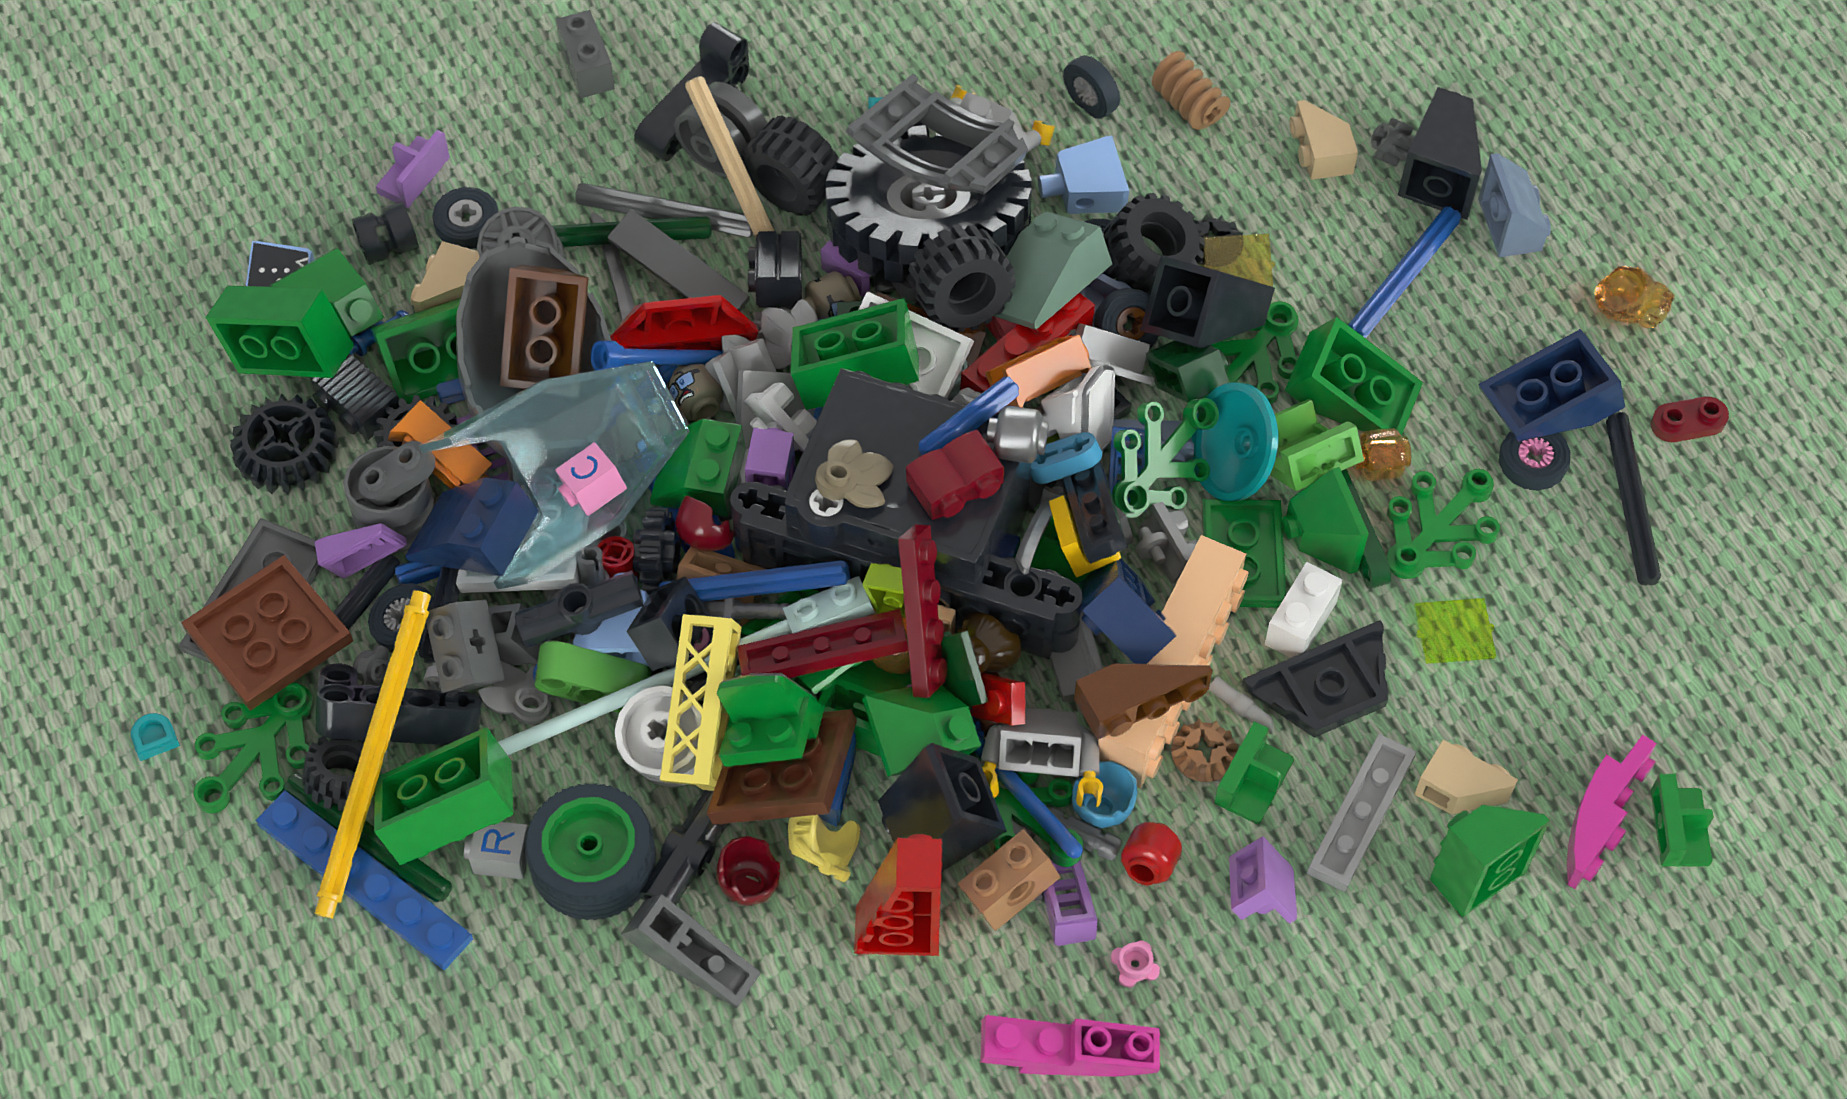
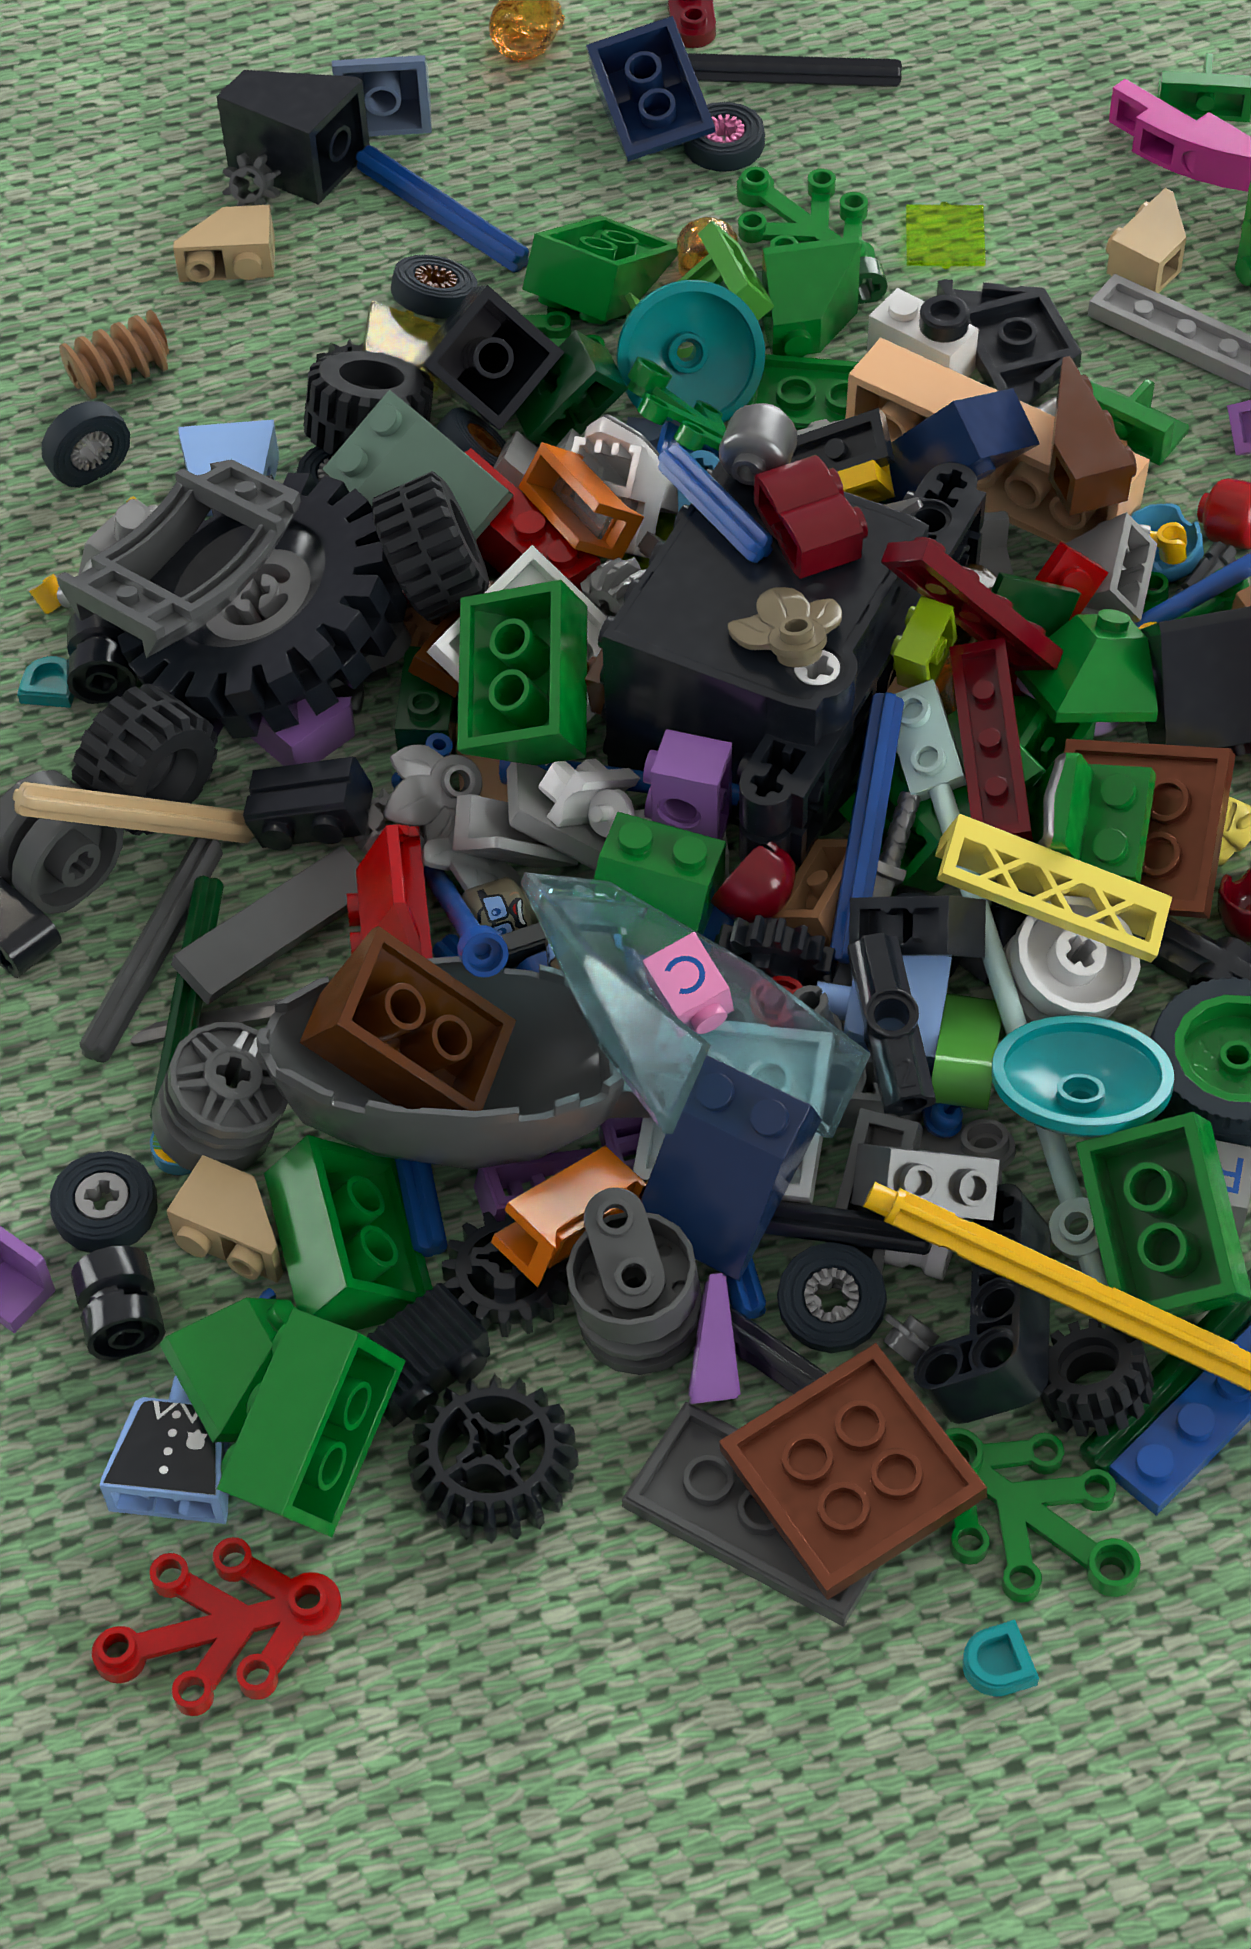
camera: 80 degrees left, 5 degrees down
(178, 329) = (227, 1625): none -> red plant
(554, 712) = (1082, 1075): none -> teal dish
(828, 290) = (370, 745): dark tan head -> none
(1297, 608) = (944, 318): none -> black tile
(1303, 259) = (431, 285): none -> black bush

